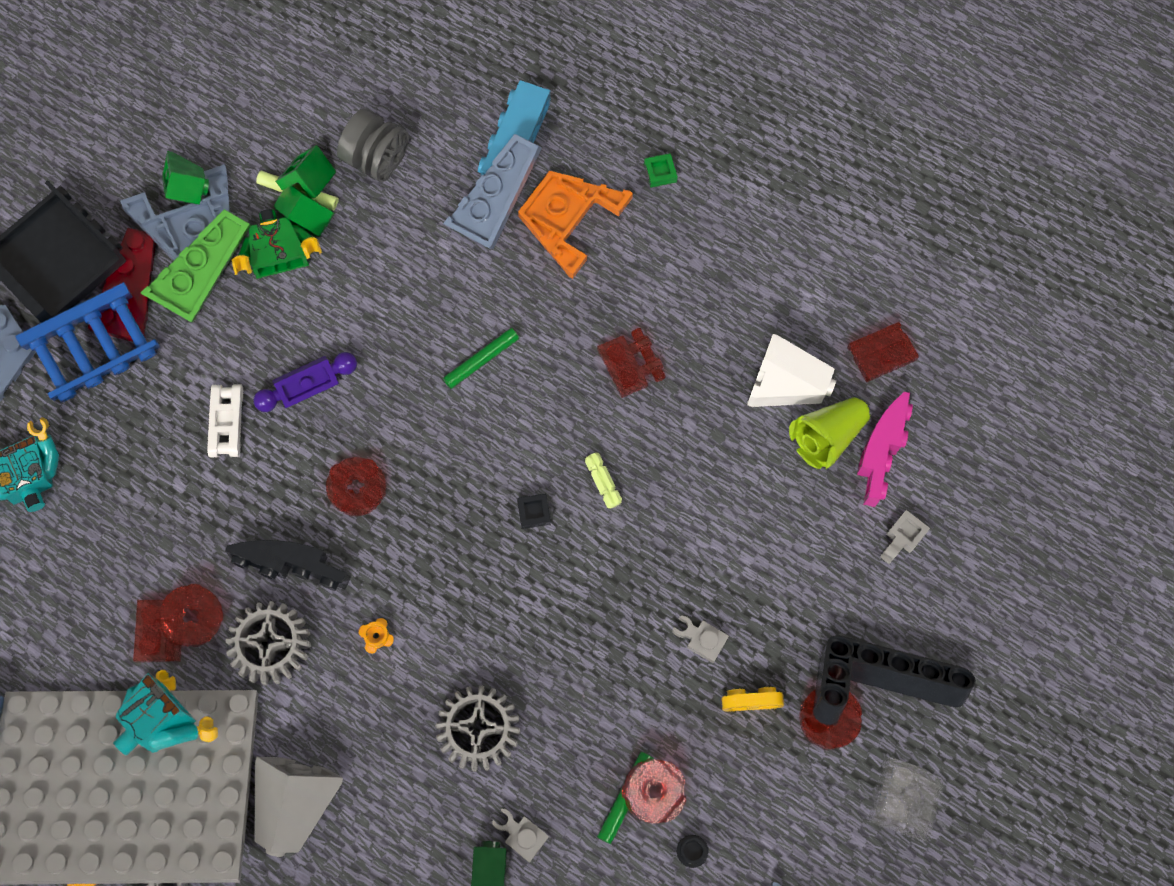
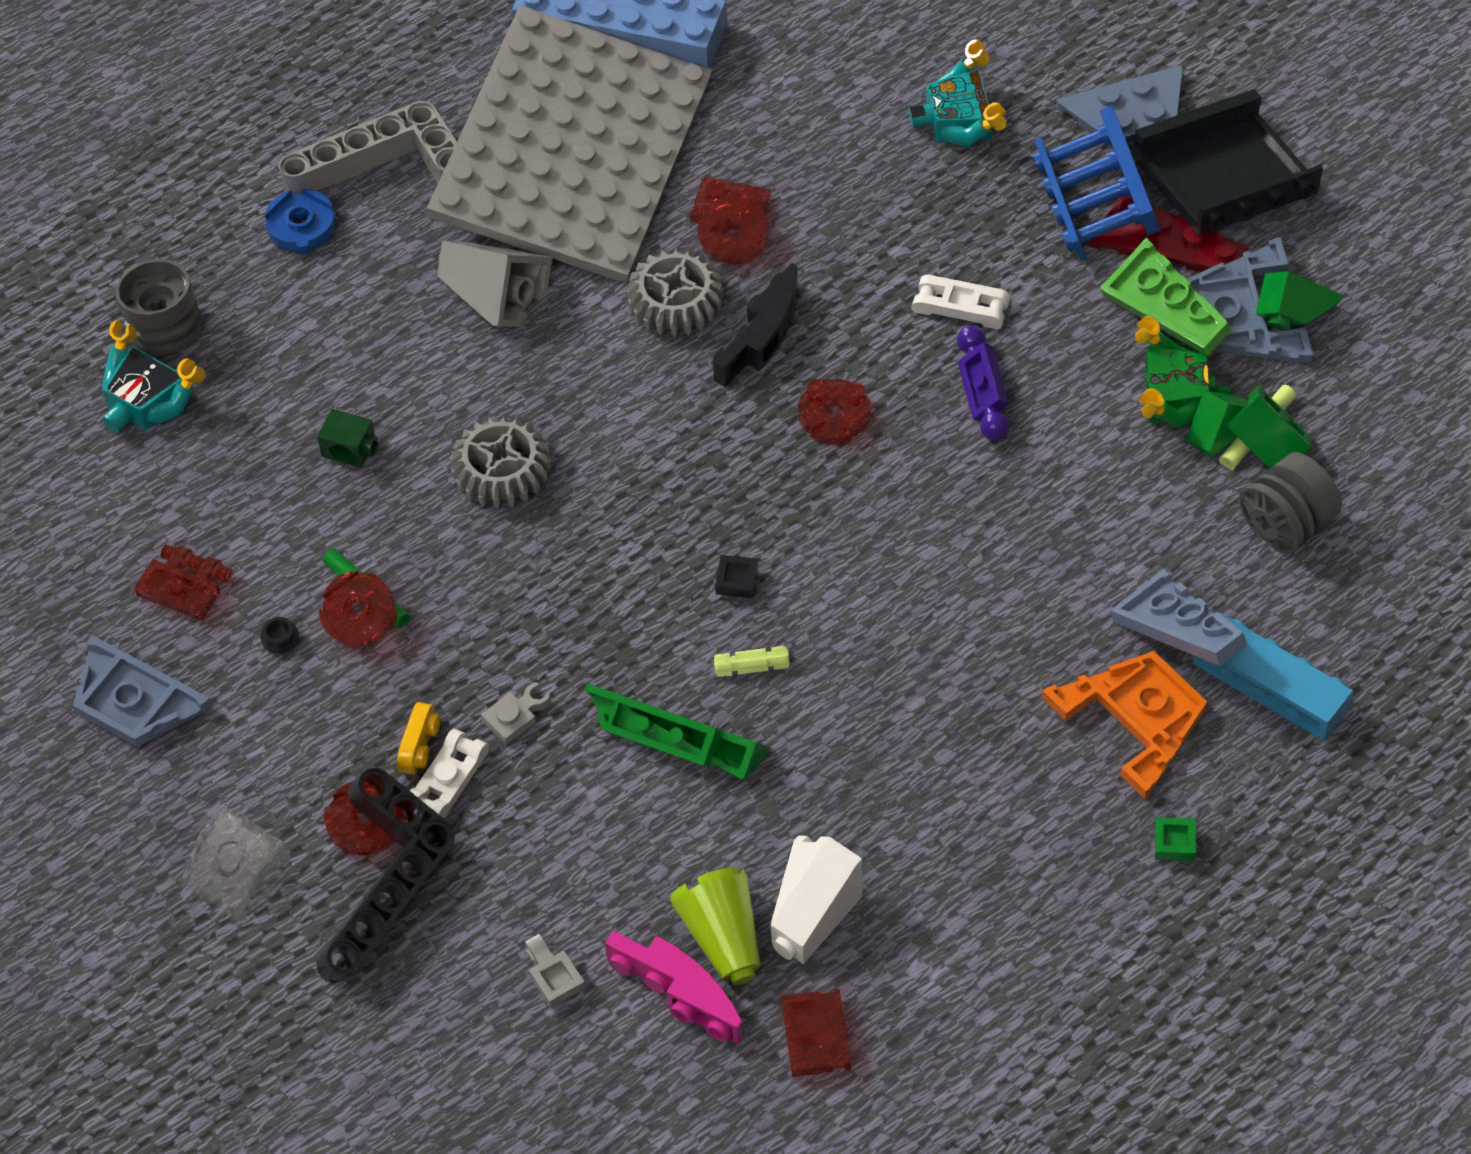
camera: 115 degrees right, 15 degrees down
(157, 717) = (625, 167): teal torso -> none
(380, 627) = (643, 386): light orange plate -> none
(480, 358) = (960, 571): green piece -> none
(524, 837) = (369, 483): light grey plate -> none
(623, 366) = (899, 723): clear red plate -> none
(683, 514) = (676, 733): none -> green wedge
(773, 669) = (448, 775): none -> white plate

